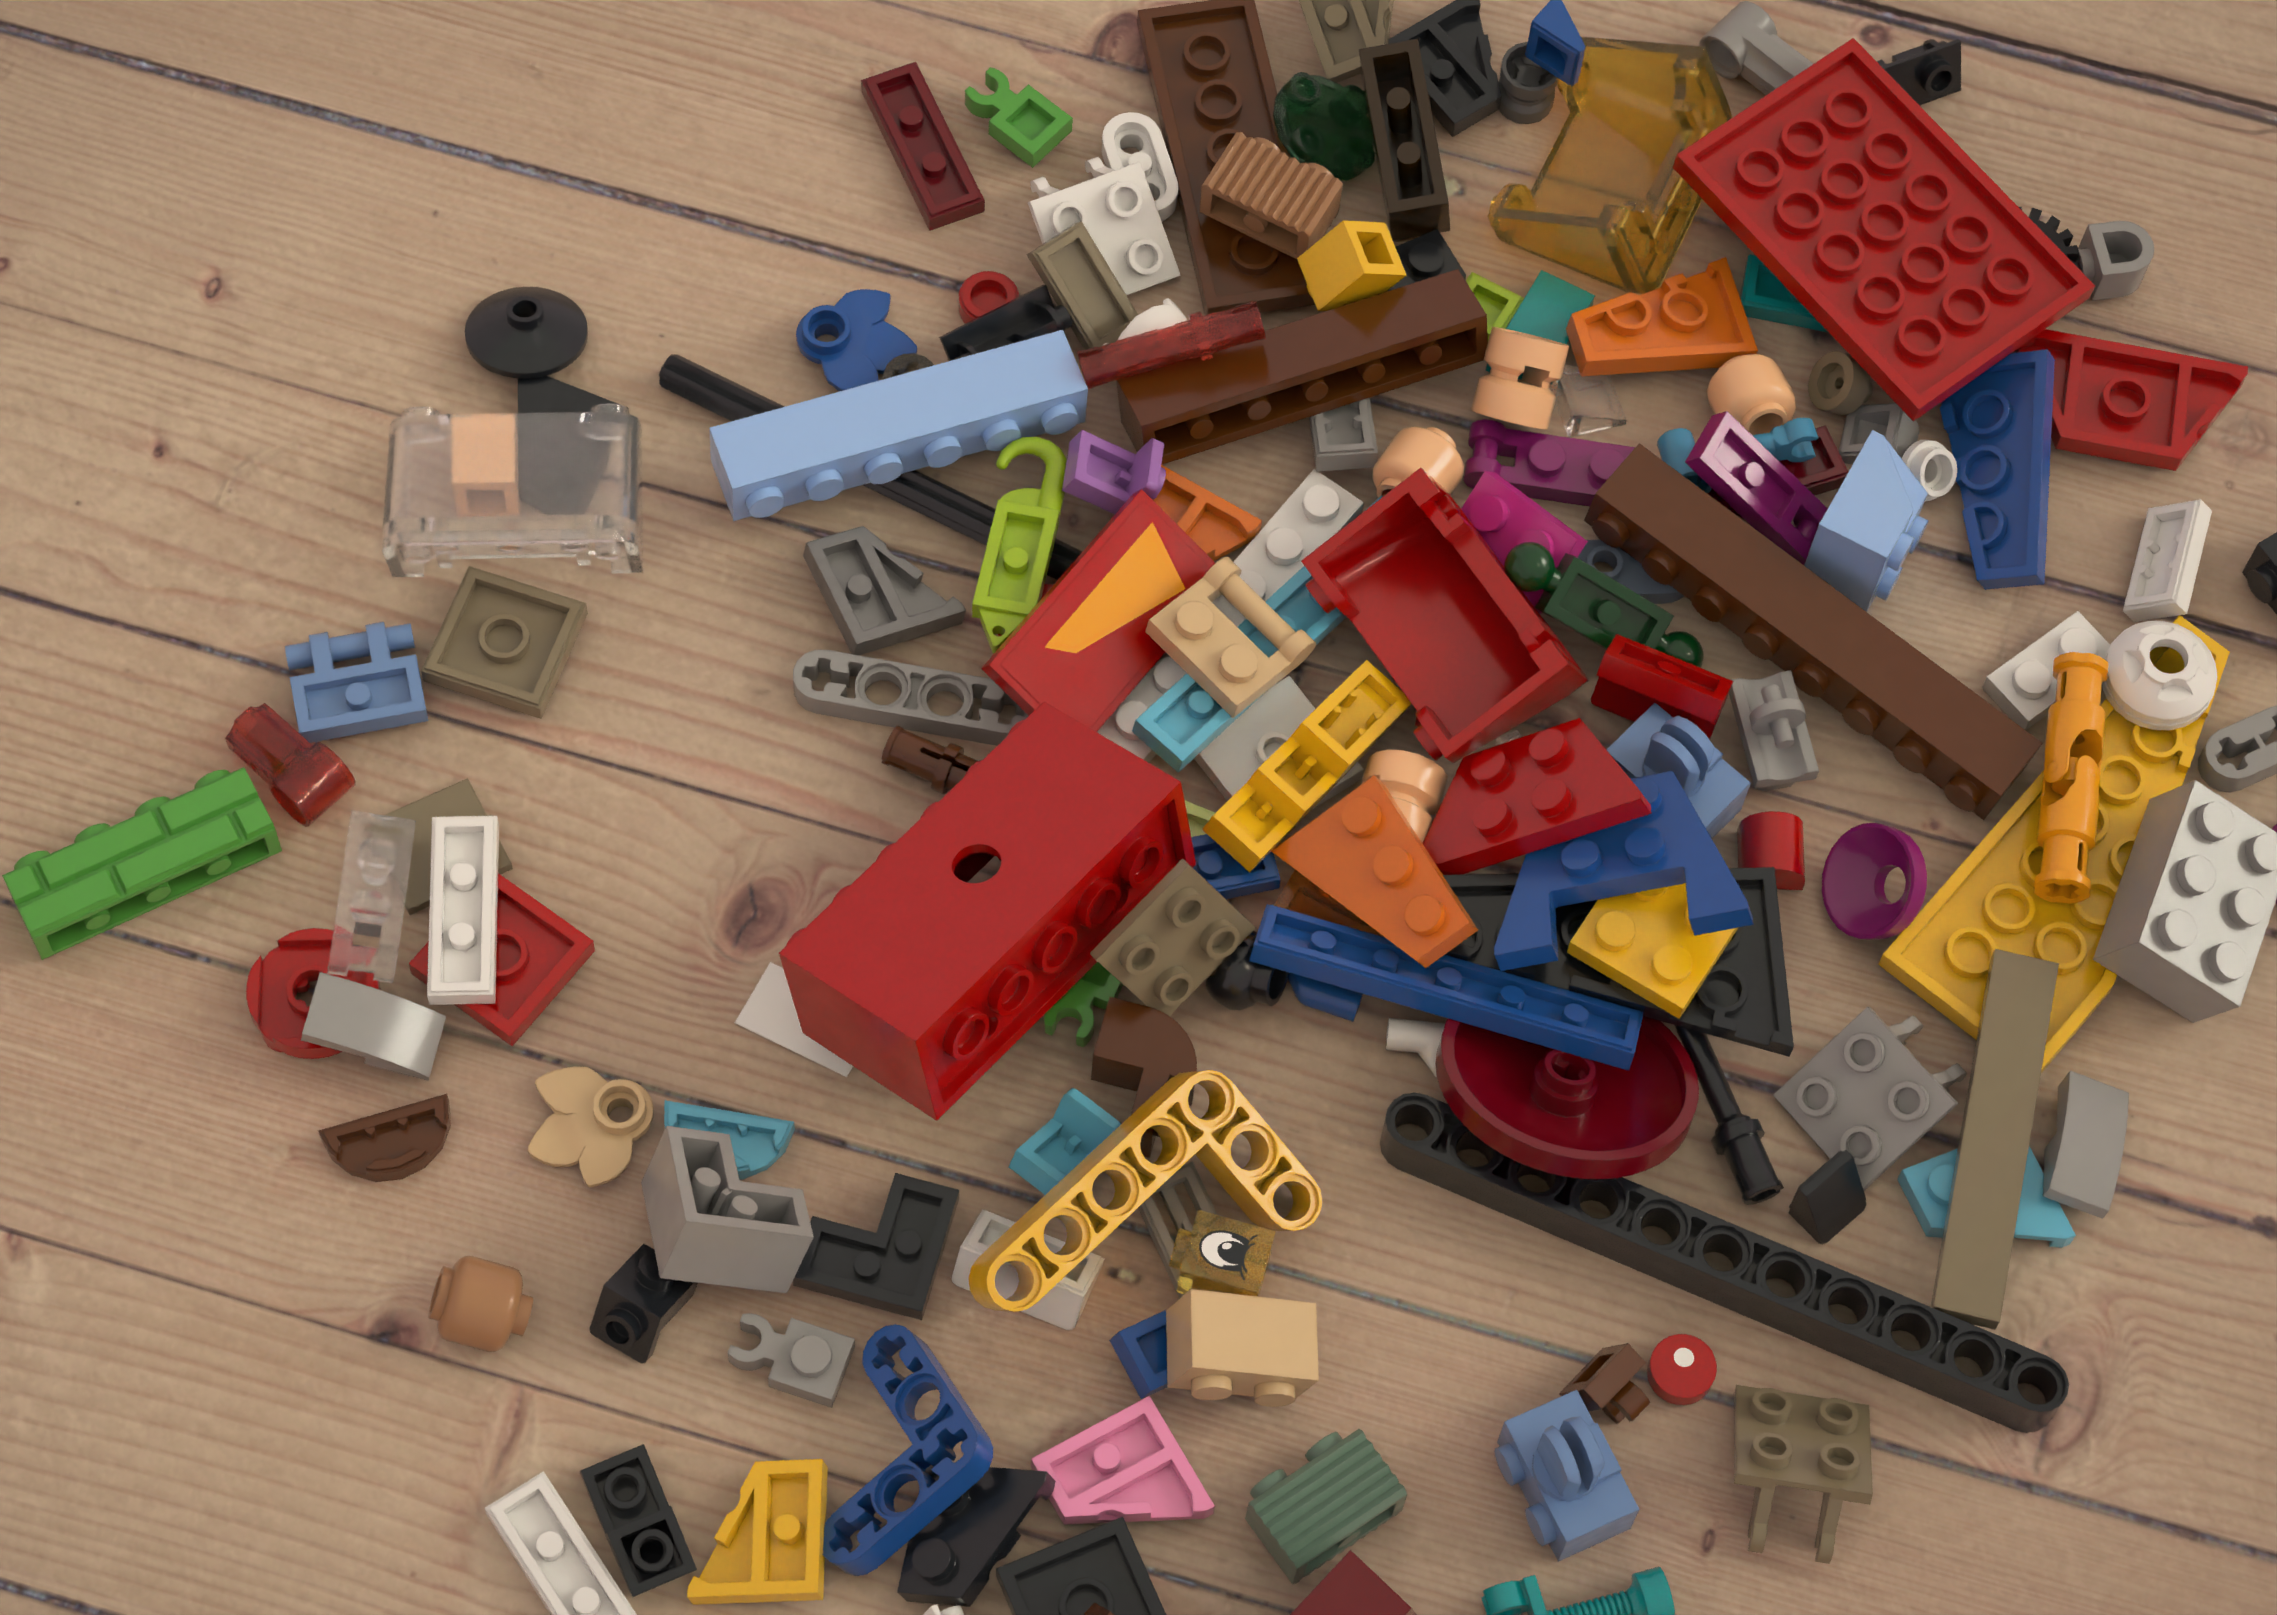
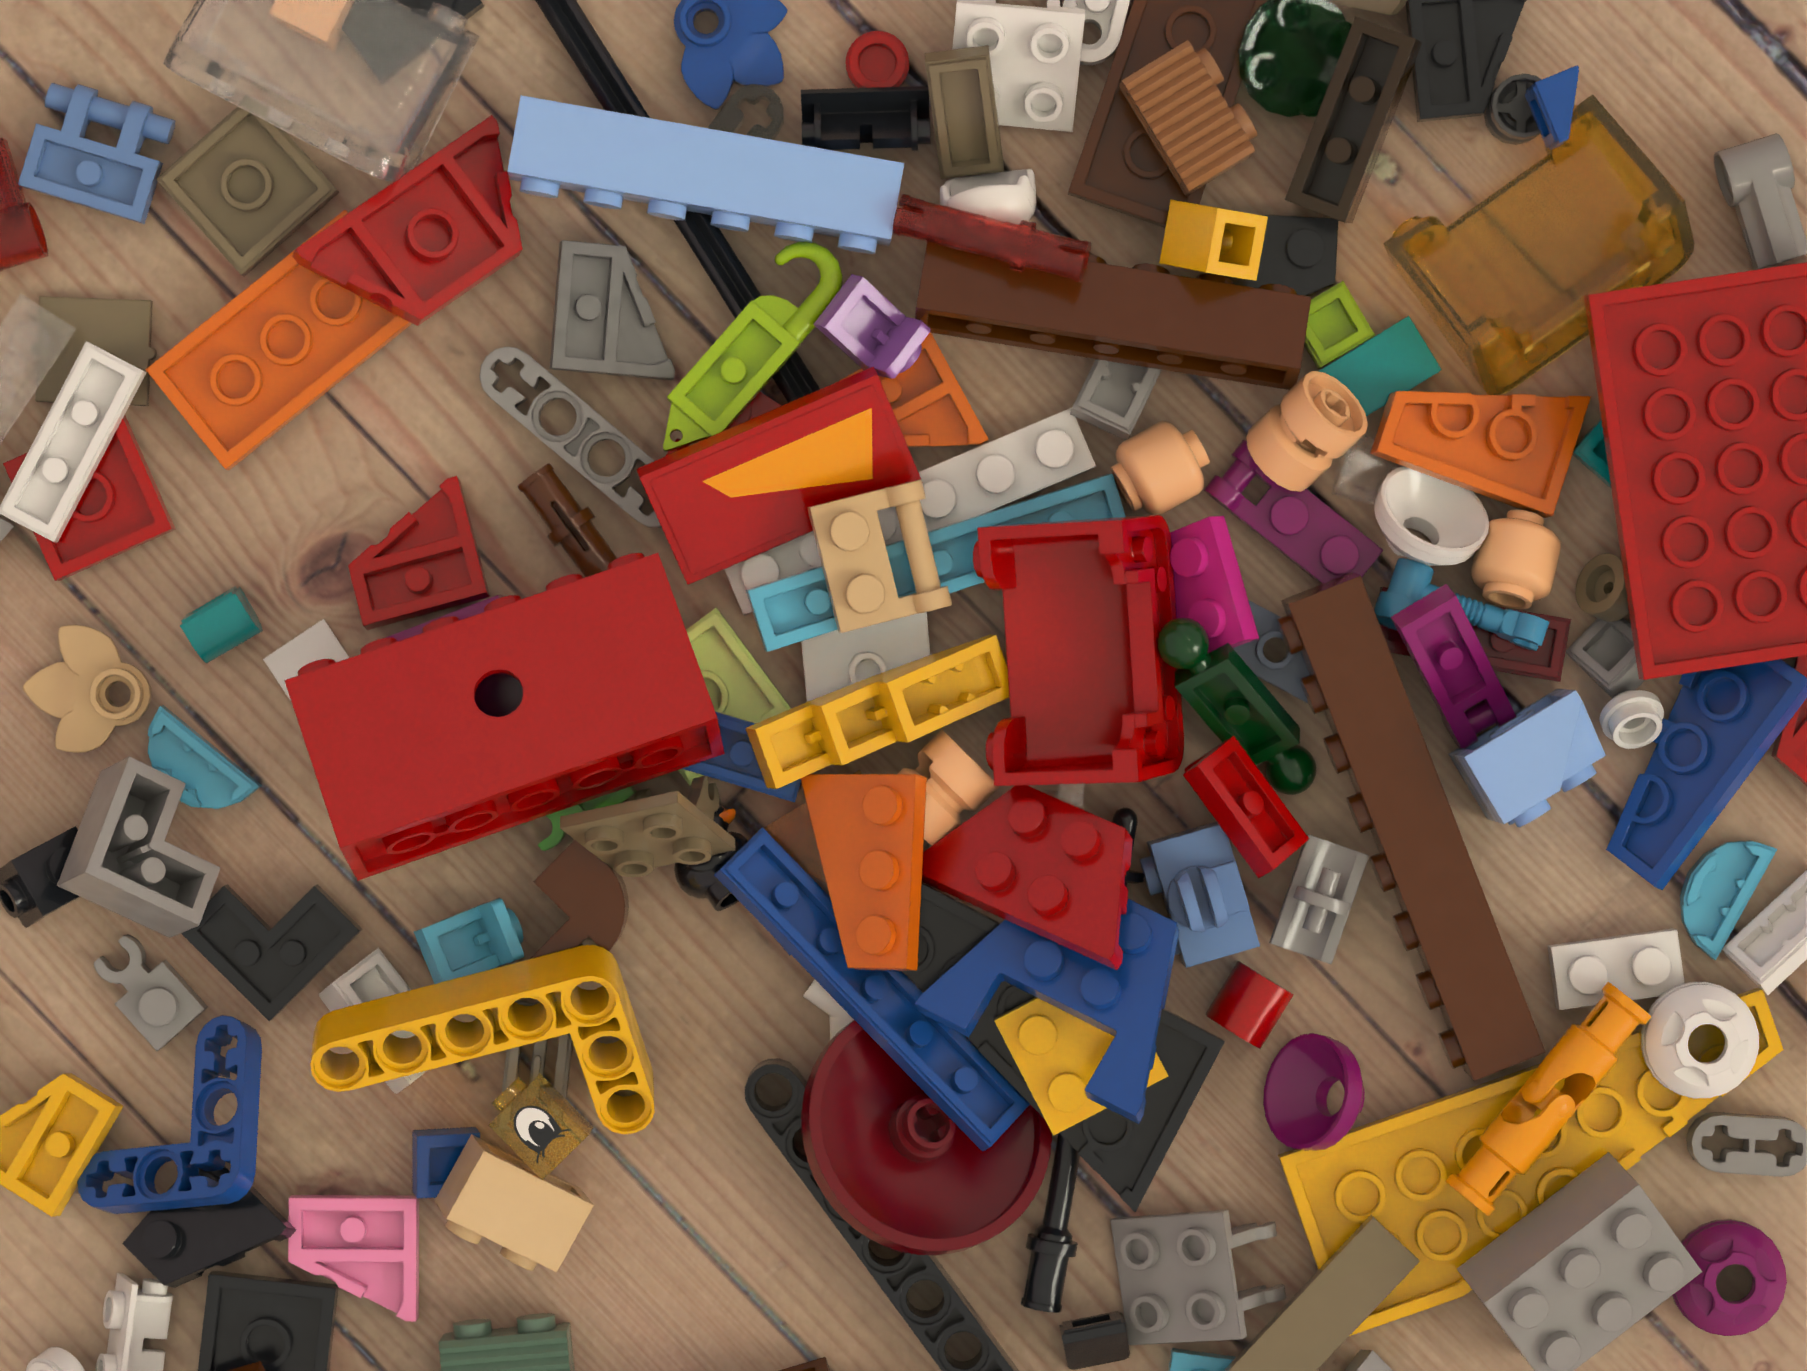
camera: 35 degrees right, 25 degrees up
(608, 746) = (270, 356): none -> orange plate
(682, 1000) = (221, 624): none -> teal brick
(683, 593) = (425, 233): none -> red wing
(826, 855) = (422, 563): none -> red wing
(1661, 401) = (1441, 511): none -> white piece
(2089, 571) = (1719, 891): none -> medium azure tile

